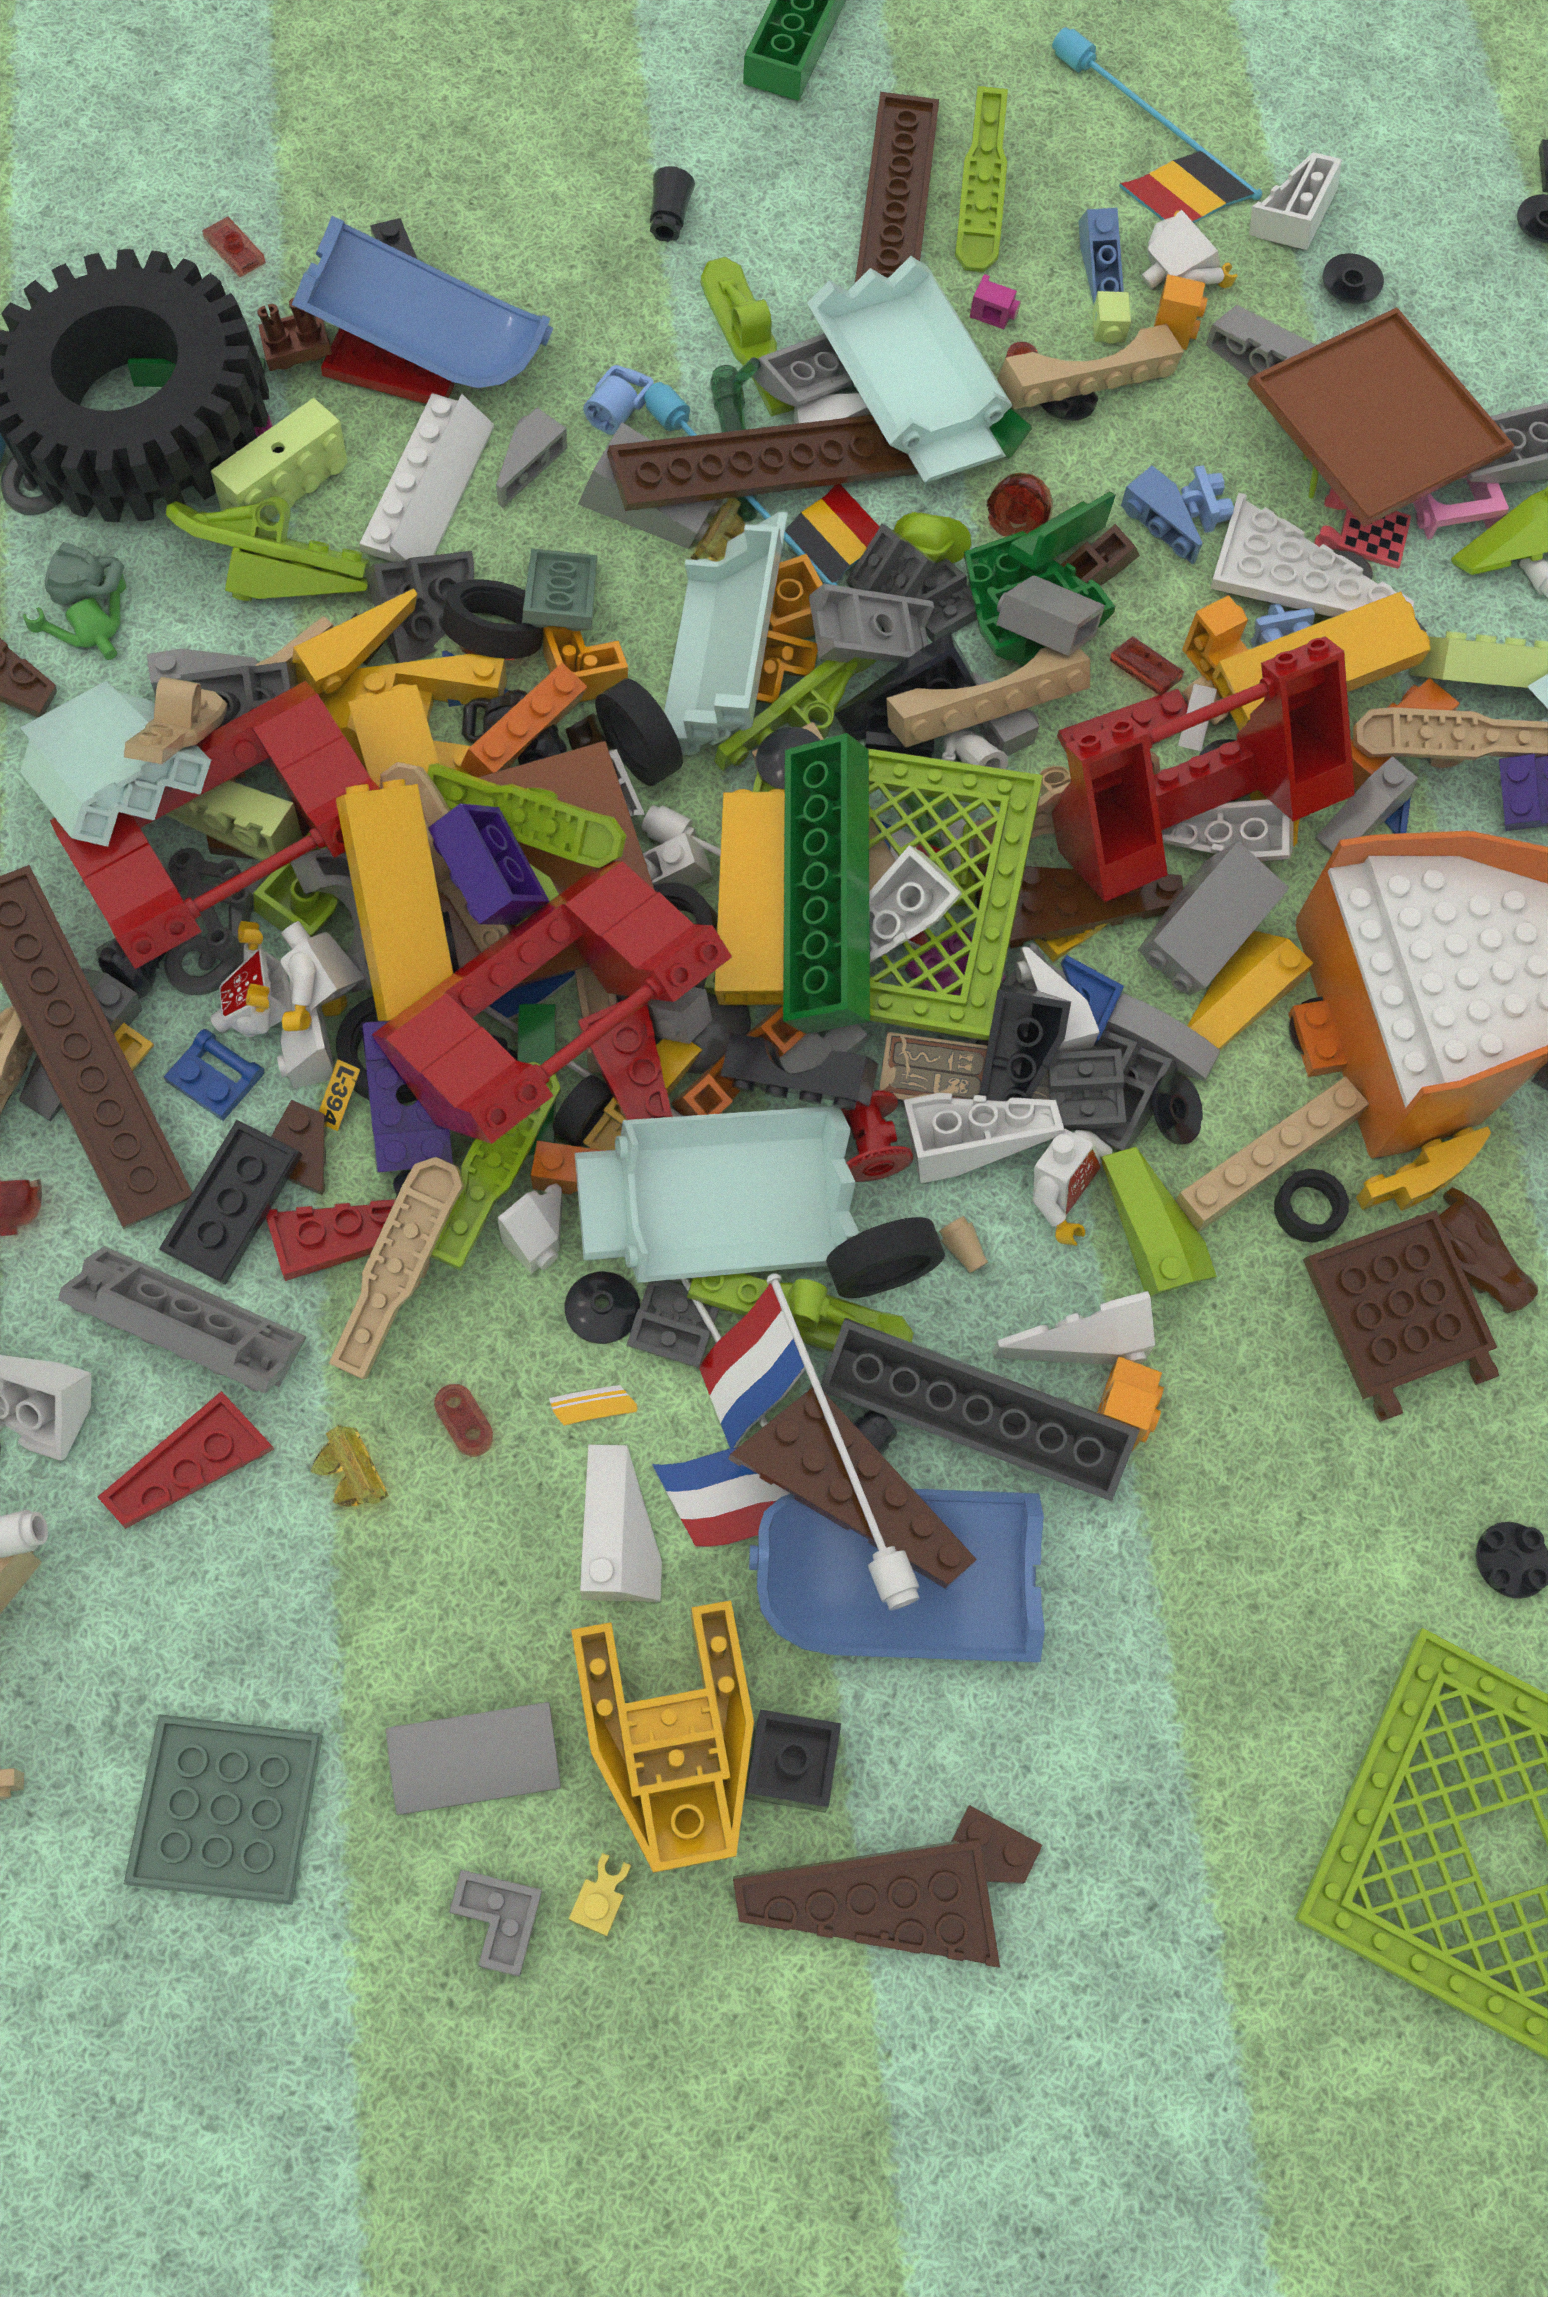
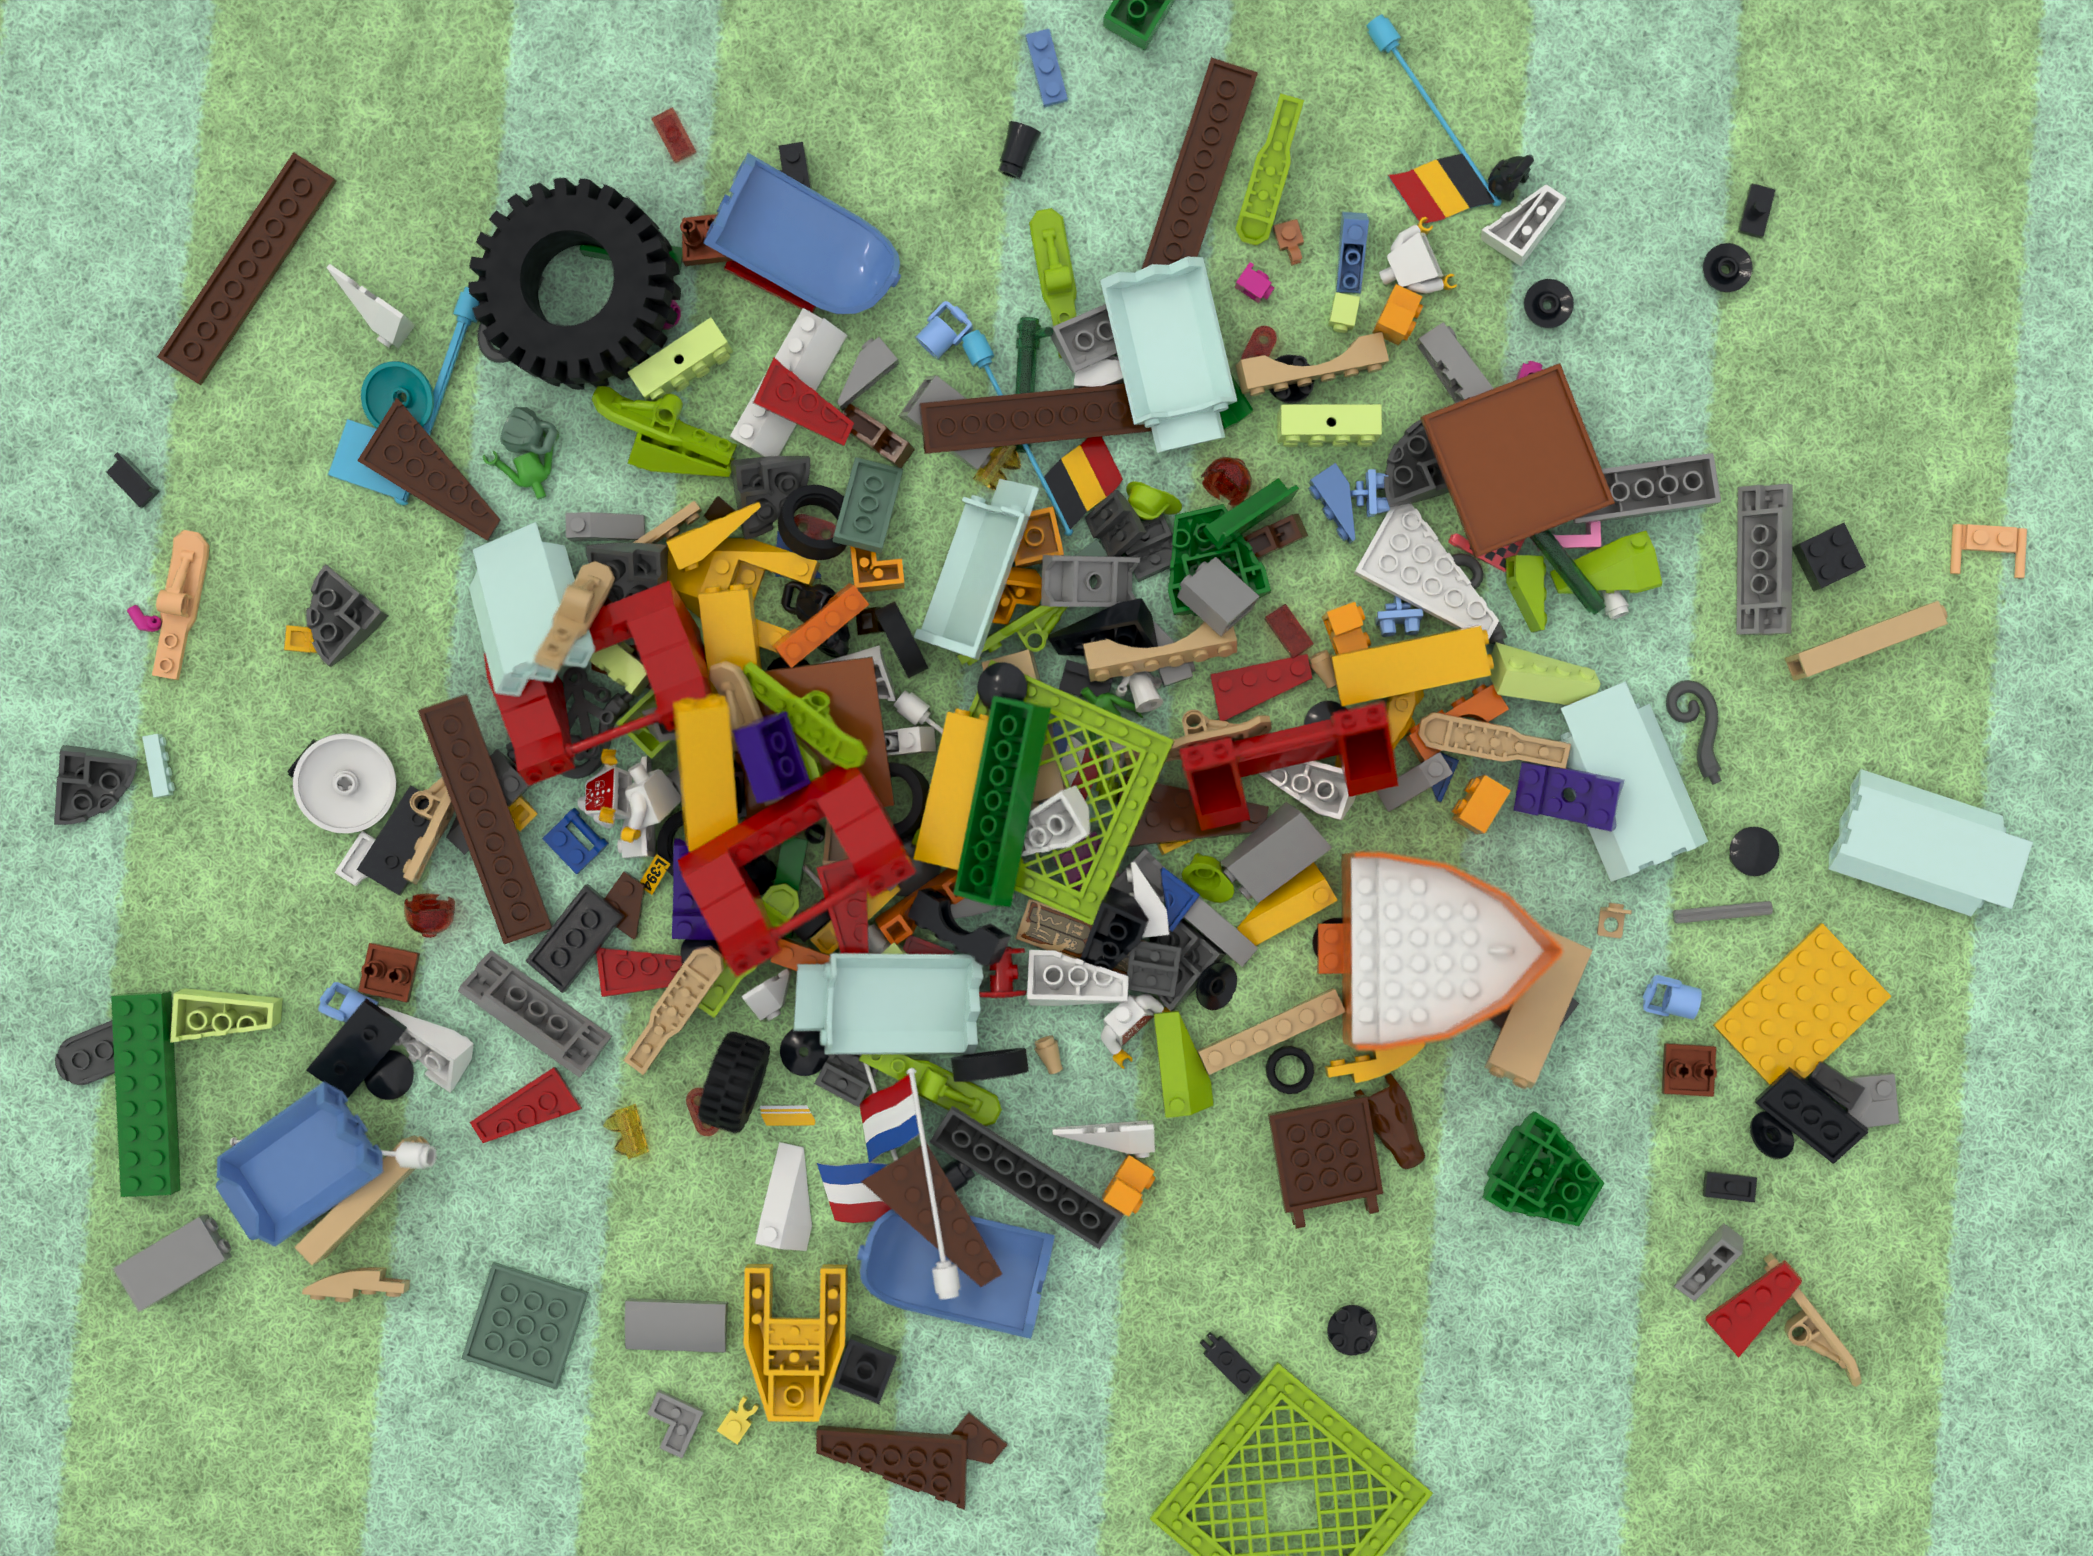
camera: 20 degrees right, 20 degrees up
(434, 481) = (794, 400): none -> red wing
(506, 1344) = (733, 1082): none -> black tyre
(554, 523) = (878, 437): none -> reddish brown slope
(564, 1015) = (818, 829): none -> black hinge
(685, 129) = (1046, 67): none -> medium blue plate
(1023, 257) = (1289, 237): none -> nougat plate
(1131, 424) = (1329, 424): none -> yellowish green brick
(1132, 968) = (1207, 879): none -> lime piece
(1194, 736) = (1314, 682): white sticker -> none
(1257, 461) = (1413, 469): none -> dark grey brick
(1266, 156) = (1508, 174): none -> black piece
(1349, 1646) = (1230, 1363): none -> black hinge
(1432, 572) = (1526, 584): none -> lime slope
(1466, 803) = (1480, 804): none -> light orange brick
(1479, 534) = (1569, 571): none -> clear green cylinder

